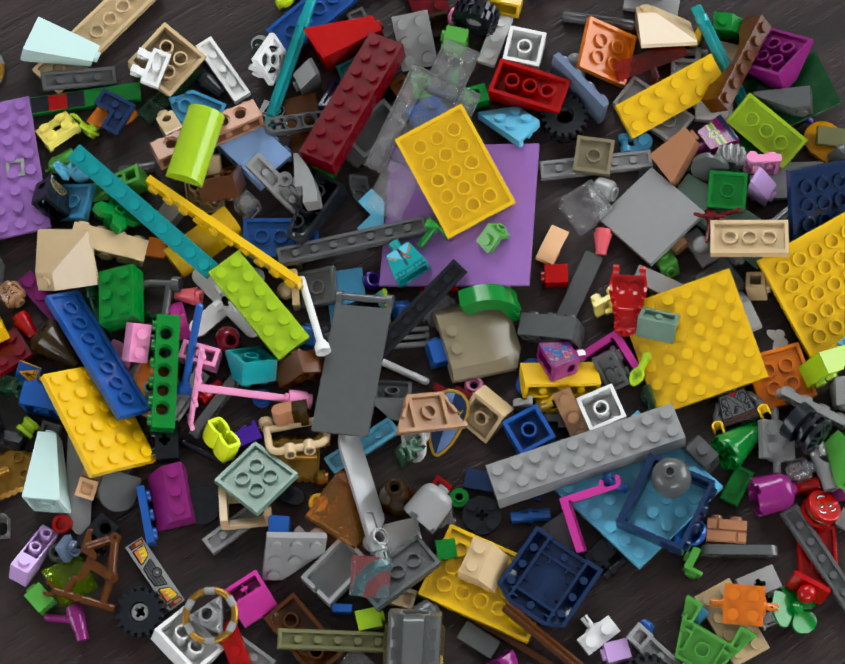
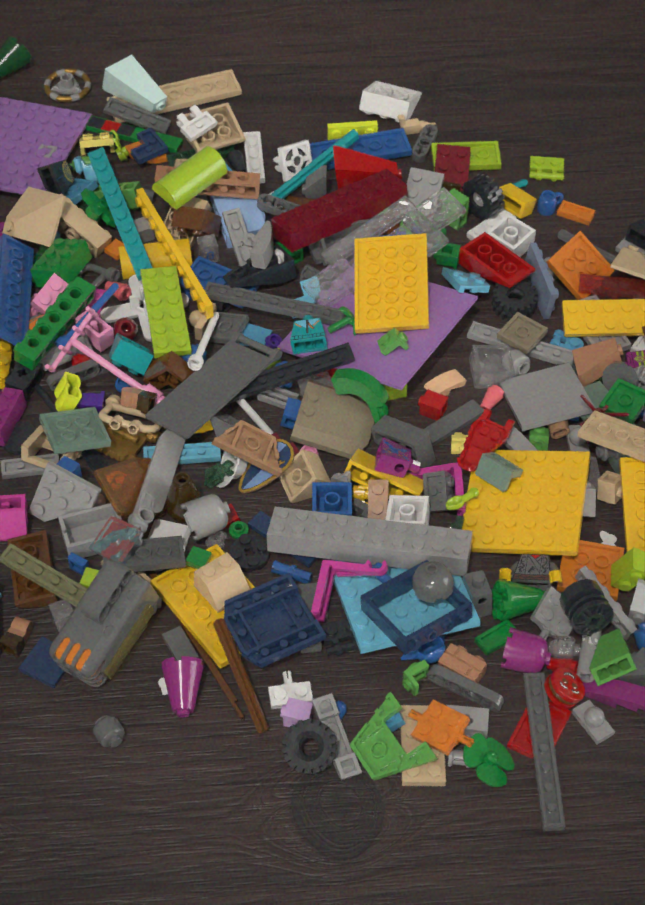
camera: 25 degrees right, 20 degrees down
(807, 589) = (512, 748): red tile -> none

